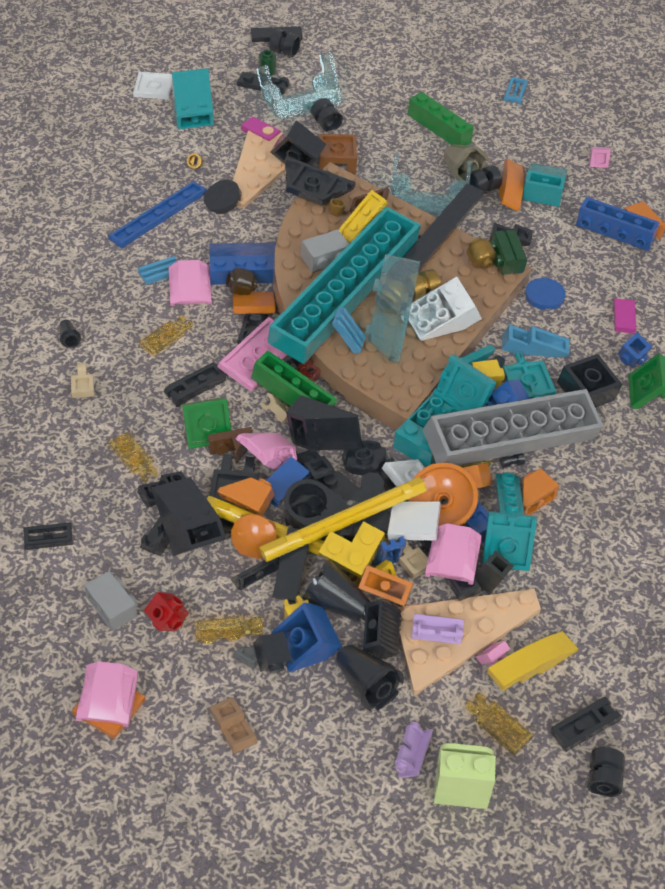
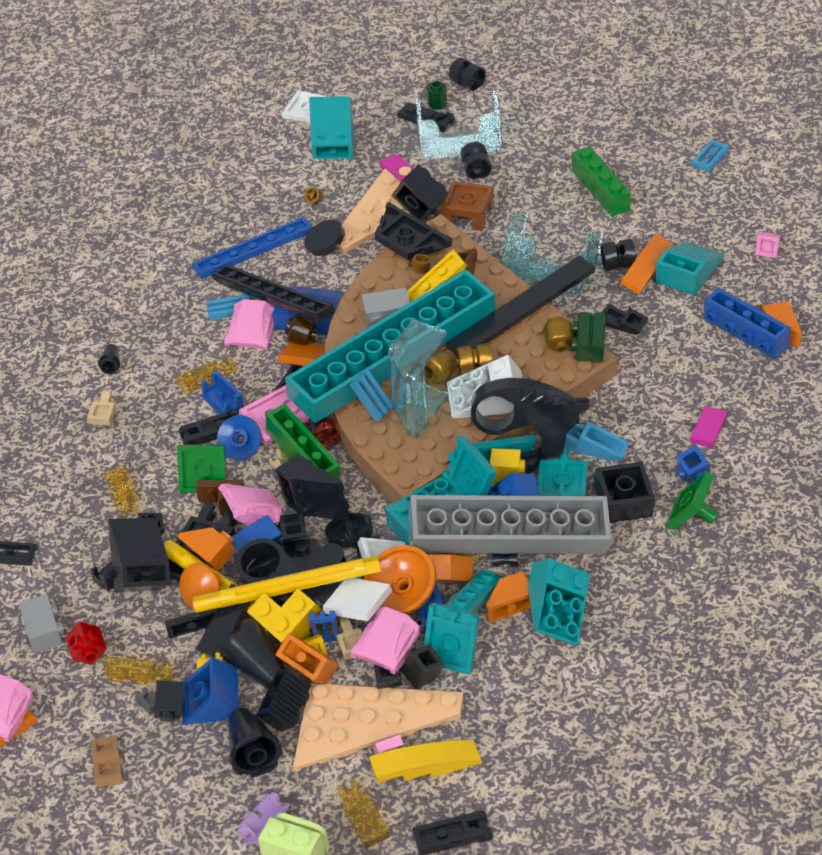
camera: 25 degrees right, 5 degrees down
(192, 351) = (221, 394): none -> blue hinge
(204, 251) = (273, 293): none -> black tile
(227, 377) = (232, 430): none -> blue dish
(264, 34) = (445, 61): black tile -> none
(437, 628) = (336, 709): lavender hinge -> none
(457, 157) = (609, 224): dark tan cone -> none
(495, 317) = (534, 403): none -> black animal
(545, 293) = (629, 389): blue tile -> none
(582, 487) = (558, 599): none -> teal slope

